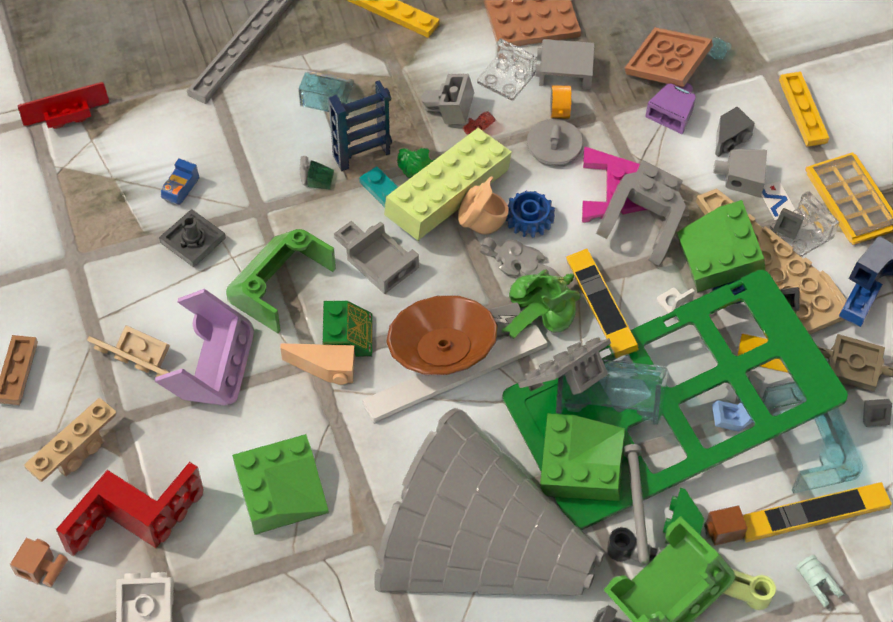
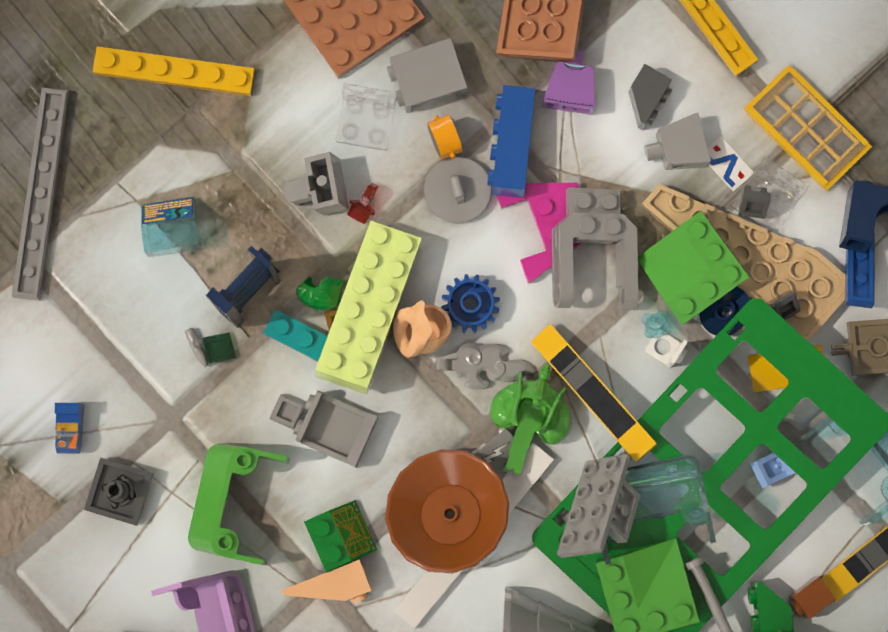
camera: 25 degrees left, 25 degrees up
(611, 122) = (512, 142): none -> blue brick
(673, 281) = (656, 331): none -> clear light blue plate

